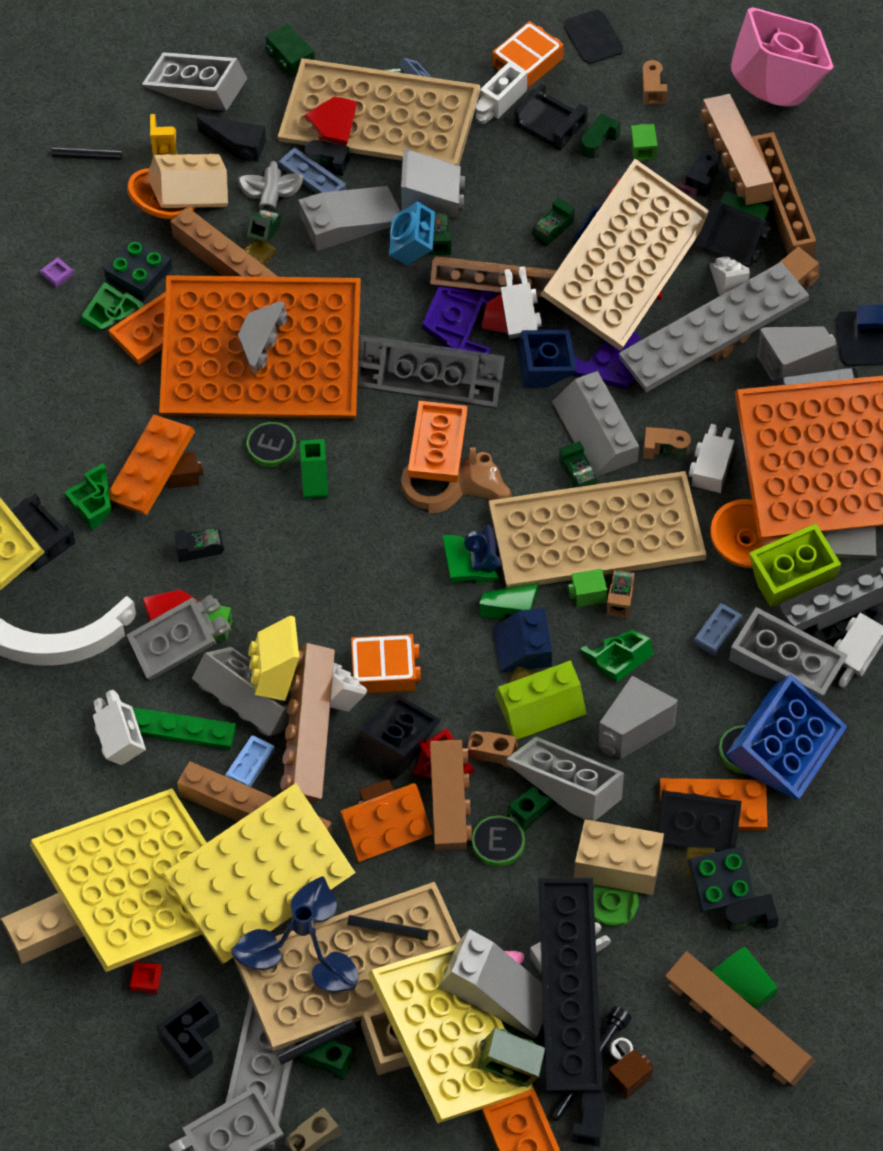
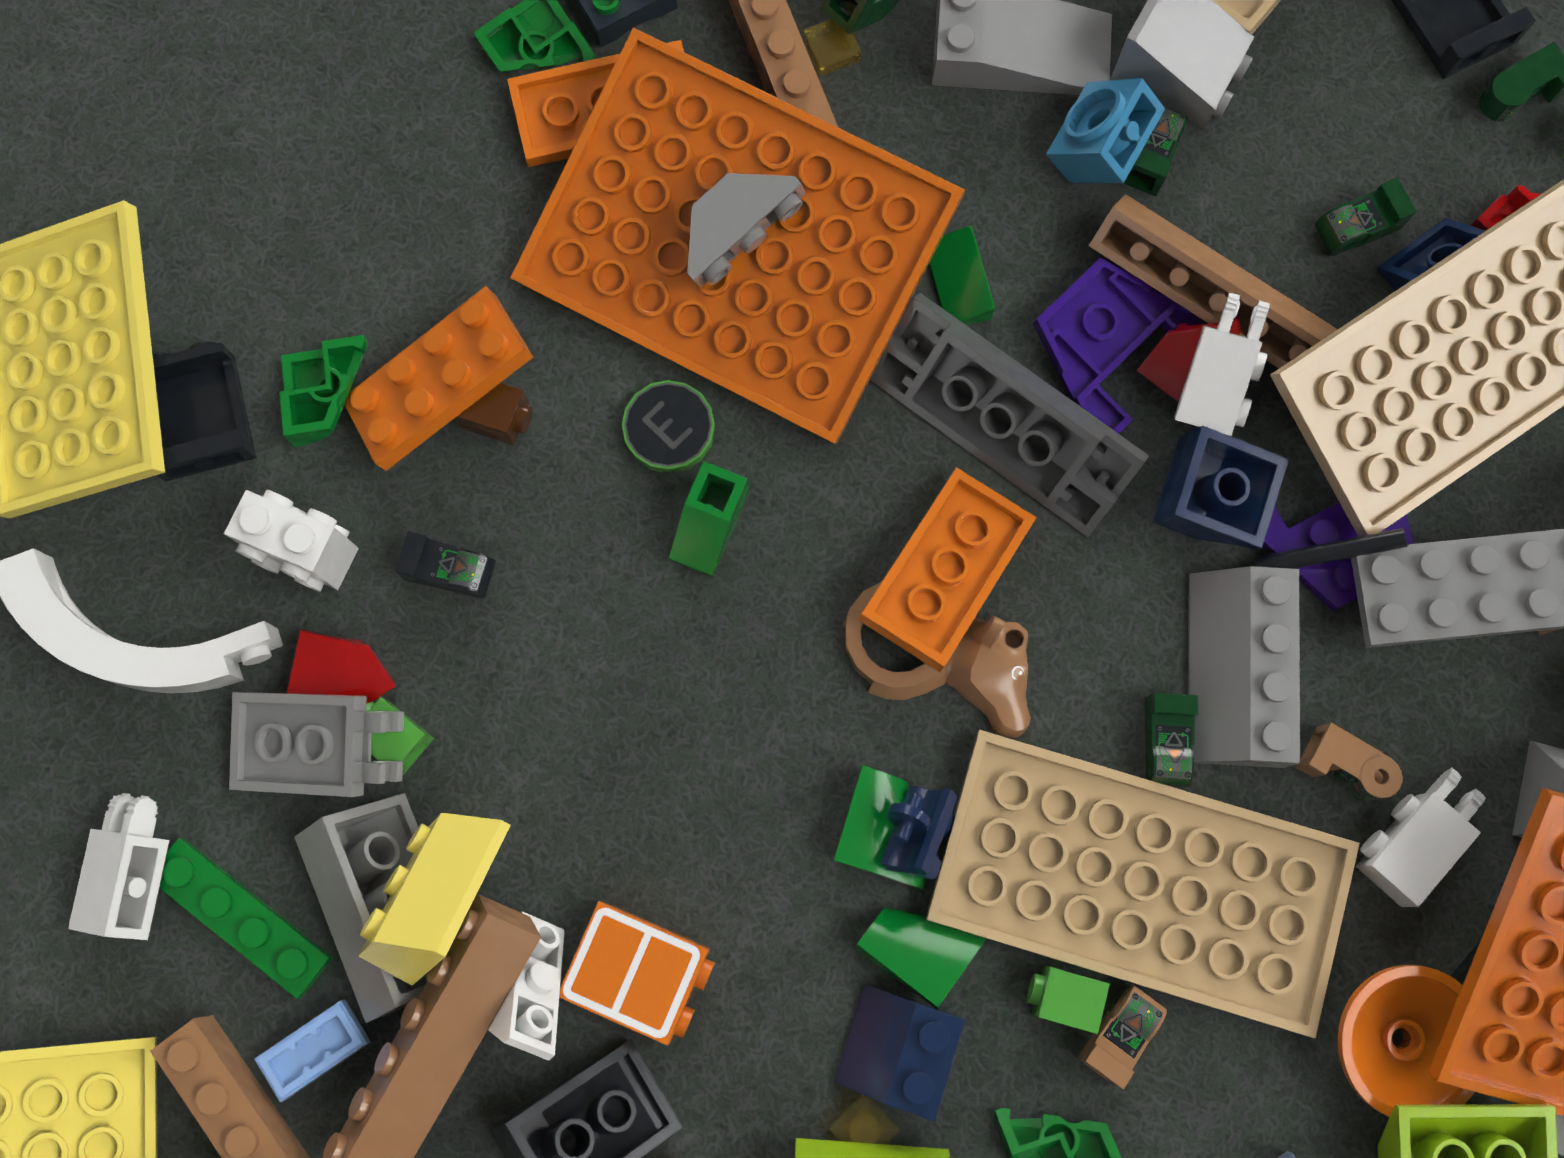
camera: 25 degrees right, 20 degrees up
(121, 558) = (291, 541): none -> white brick
(377, 323) = (962, 278): none -> green slope
(615, 354) = (1335, 550): none -> black bar

